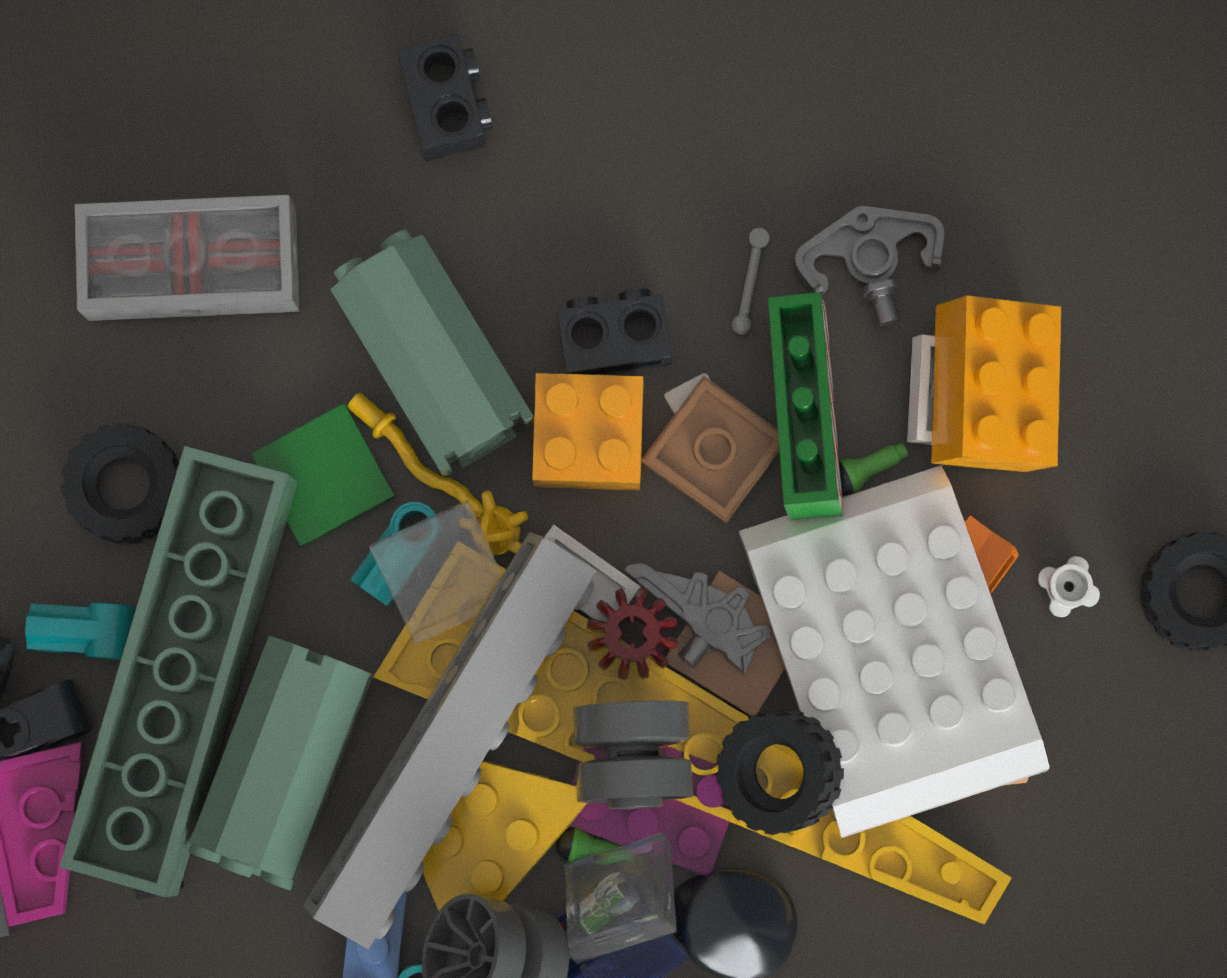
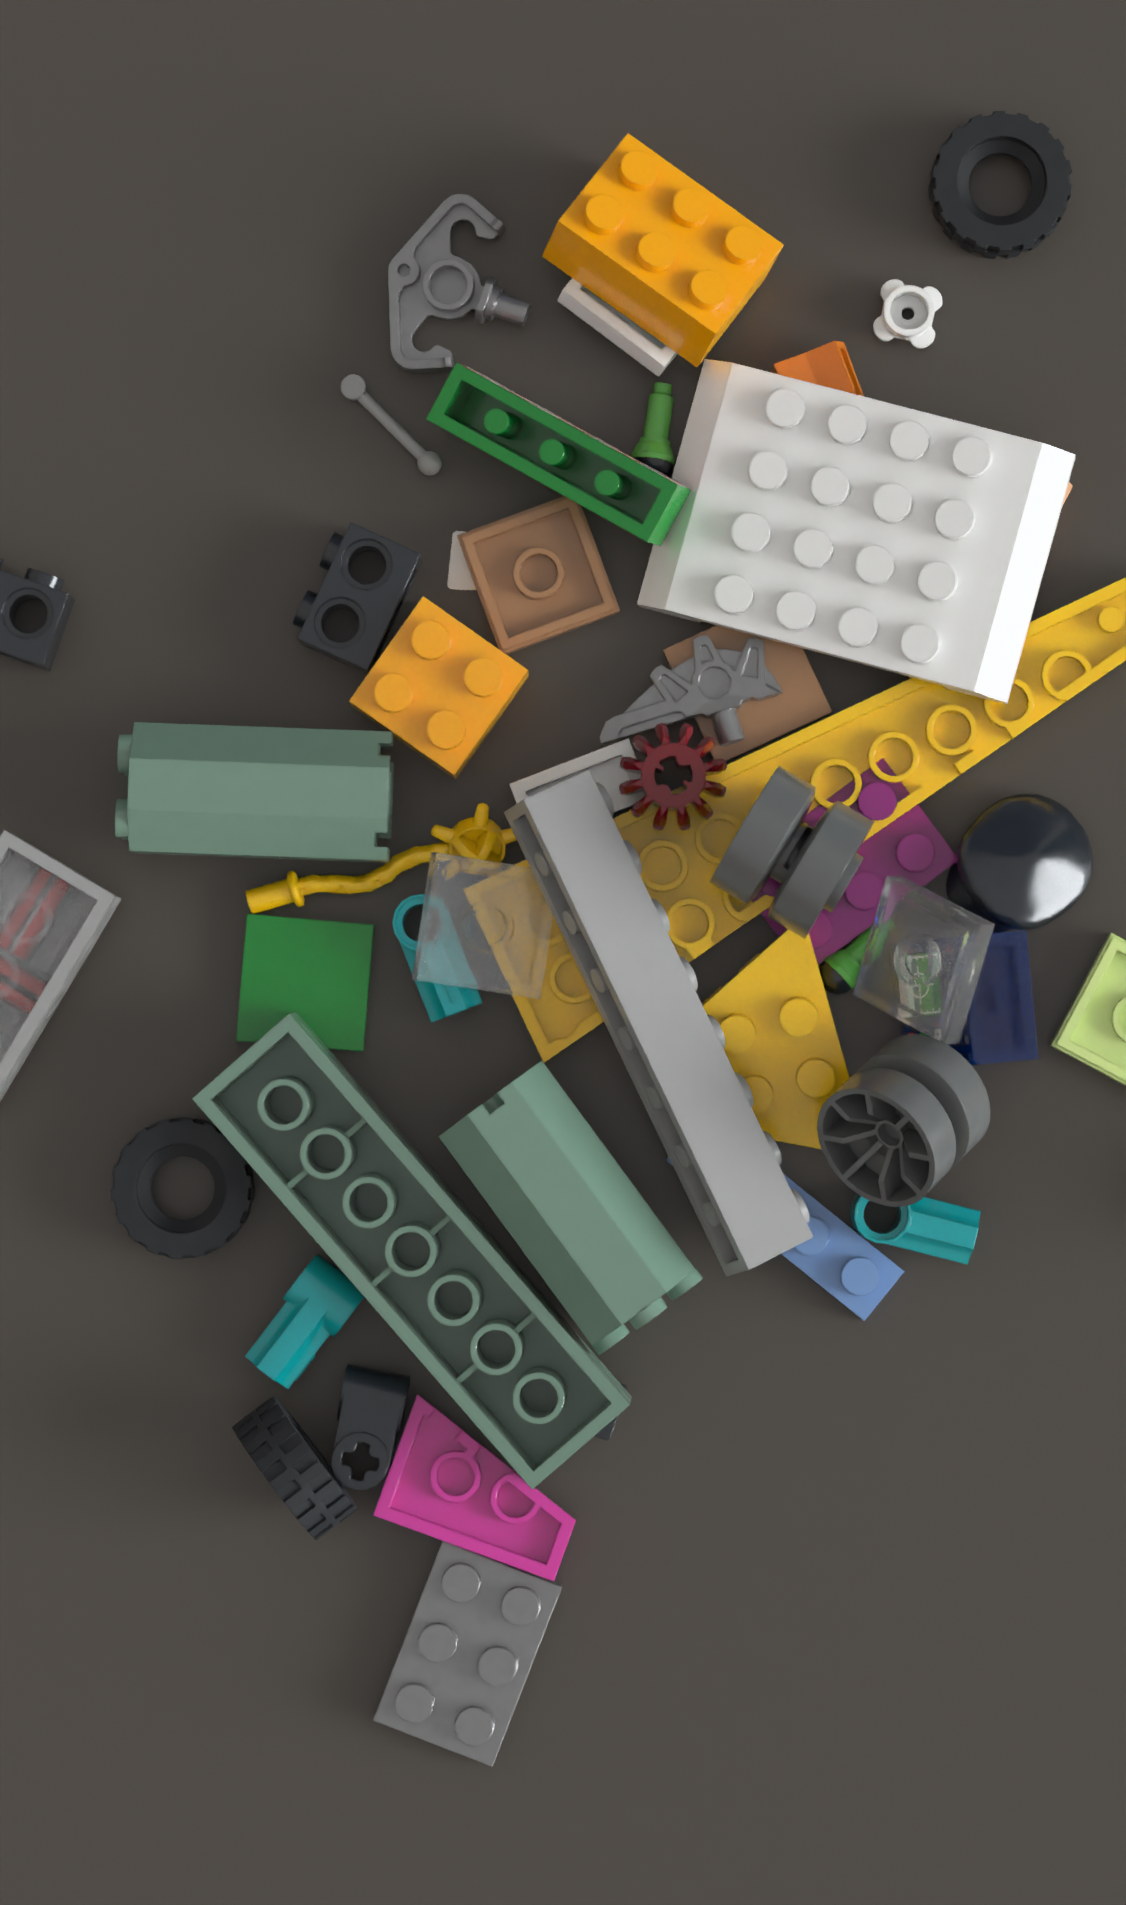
camera: 55 degrees left, 5 degrees up
(820, 771) = (896, 768): black tyre -> none

